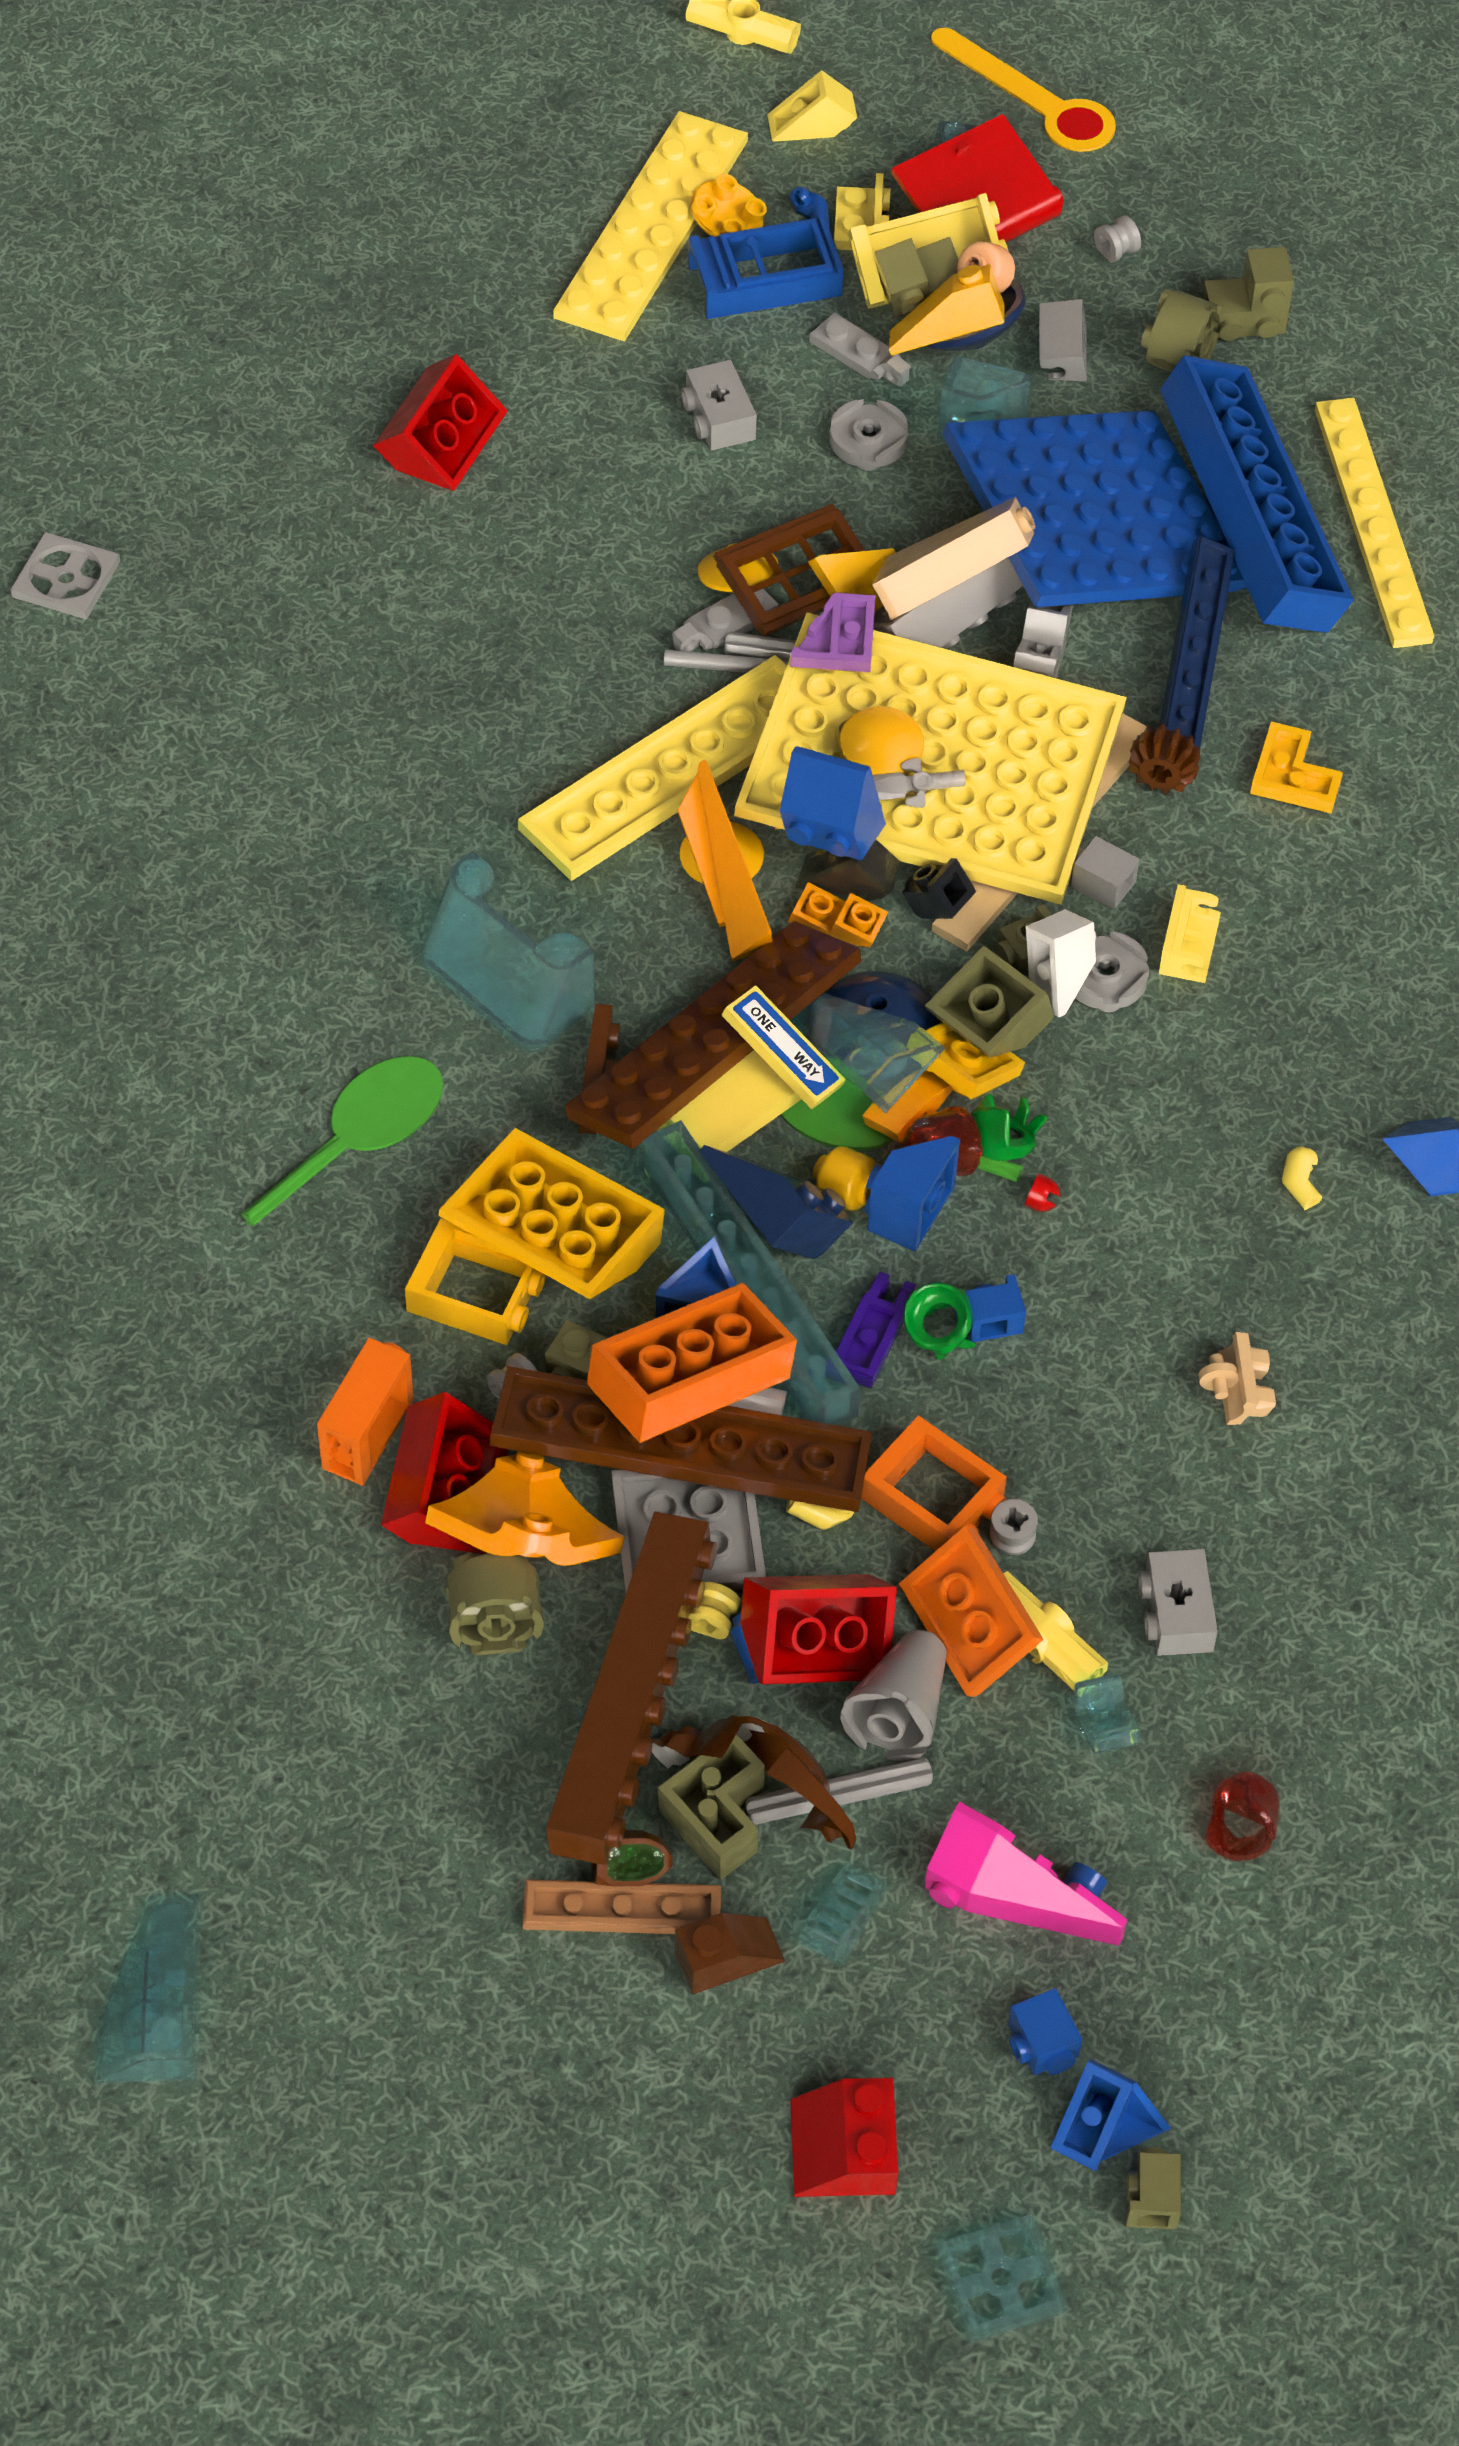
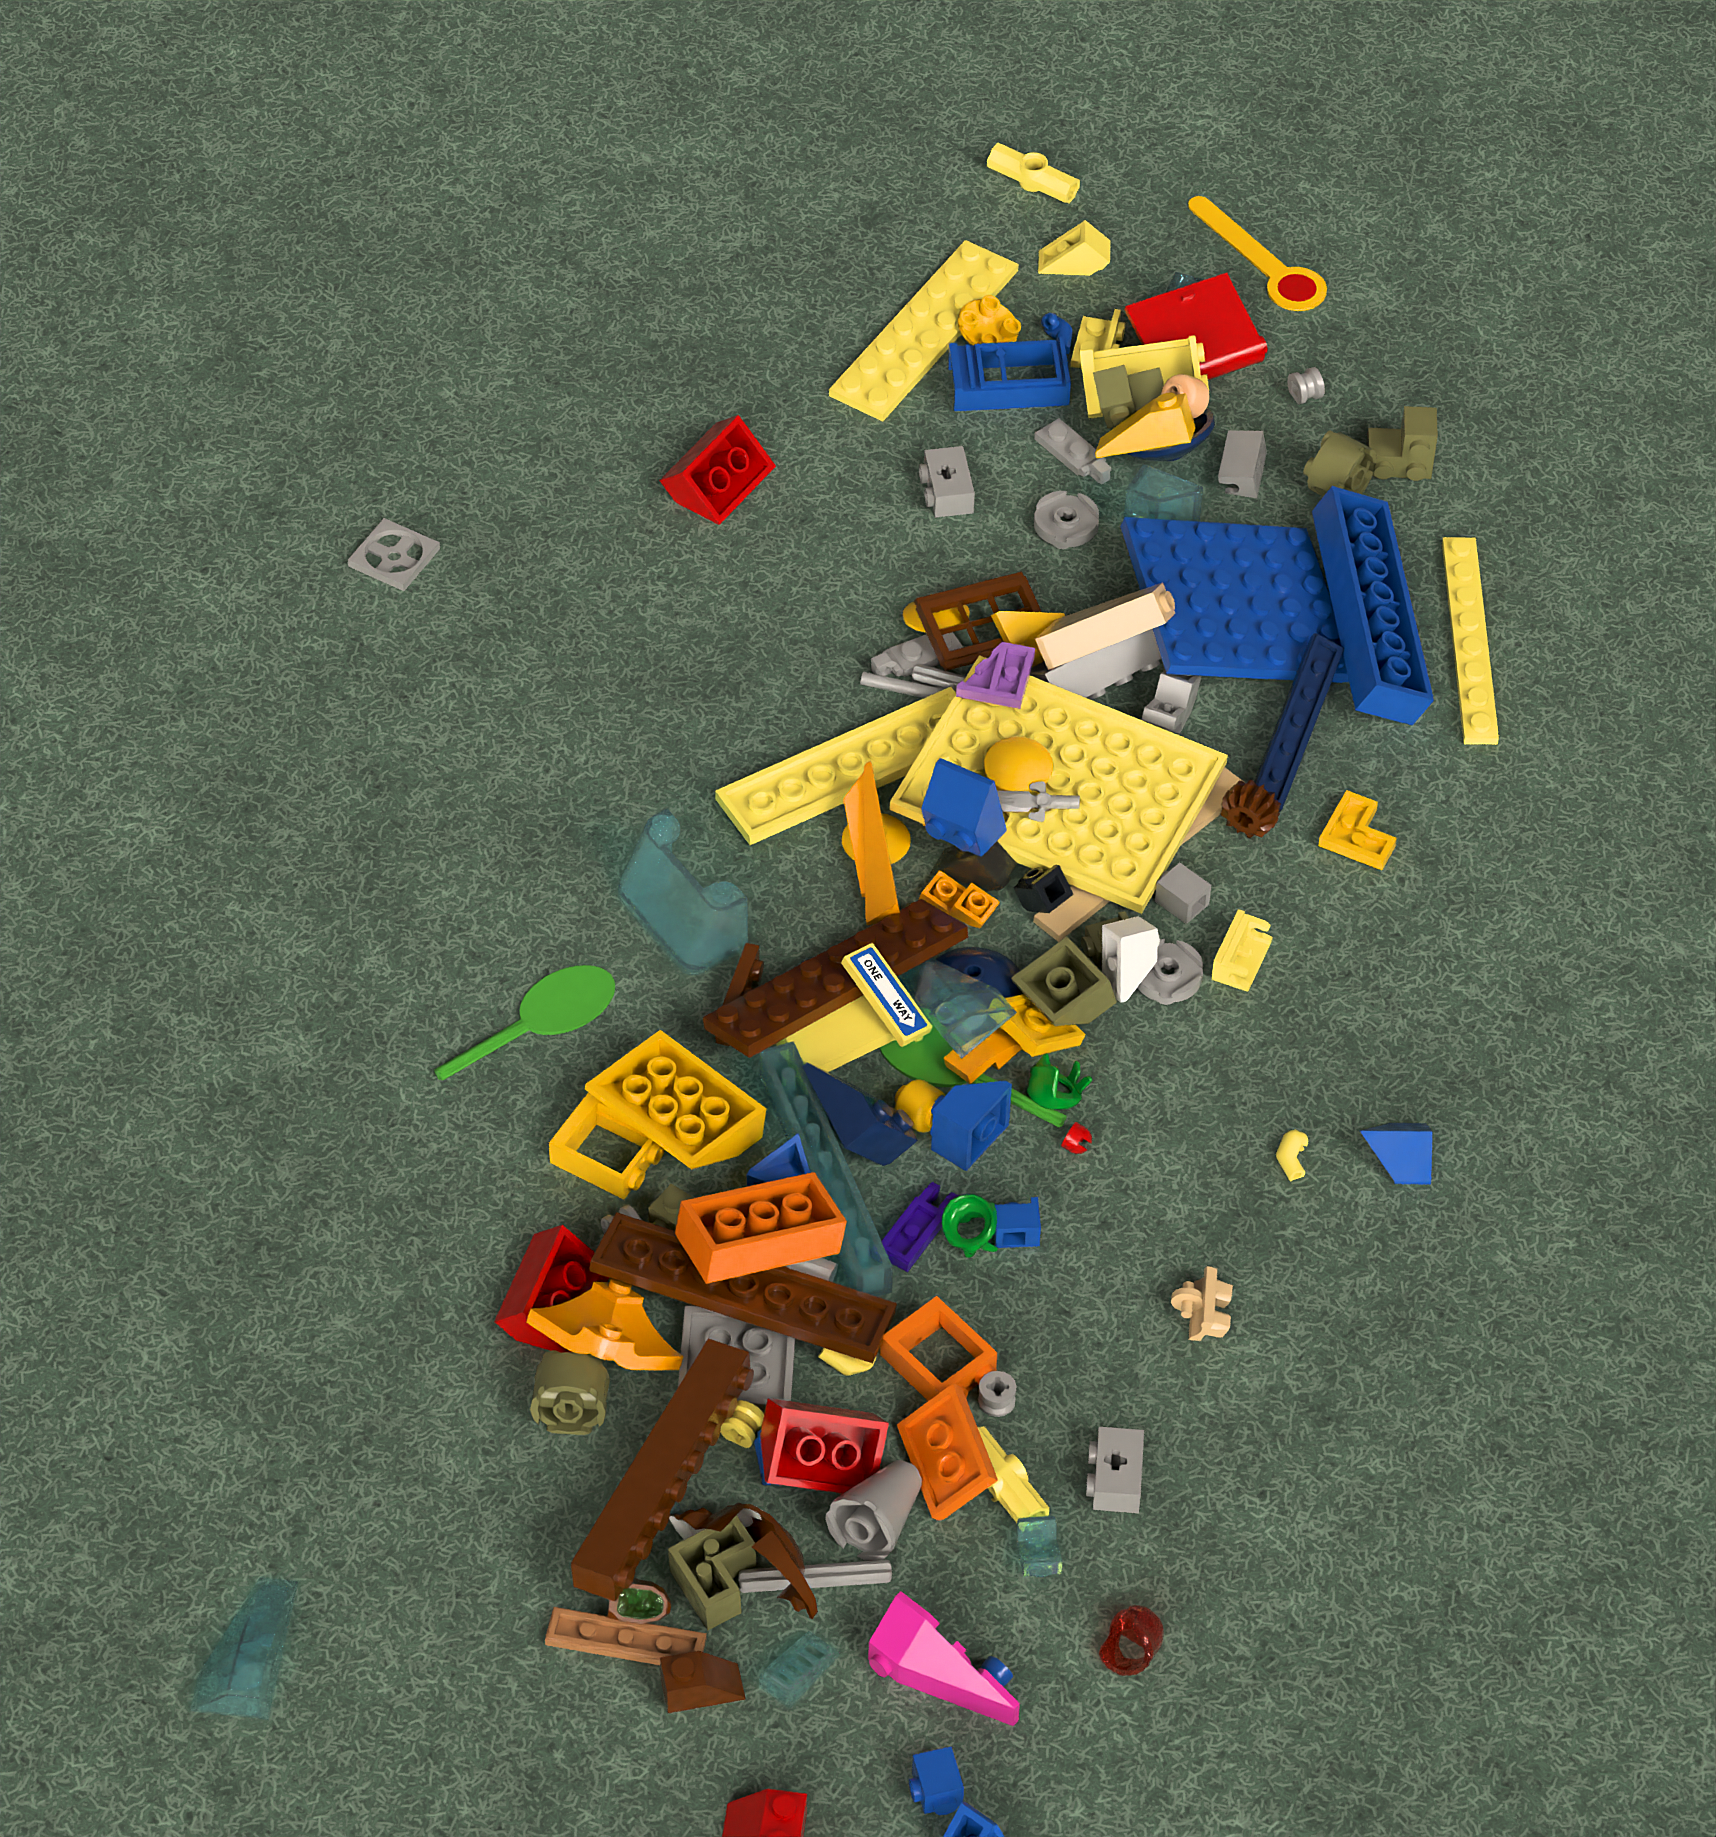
camera: 10 degrees right, 5 degrees down
(365, 1411) = (498, 1232): orange window -> none
(949, 1122) = (1019, 1076): clear red hair -> none

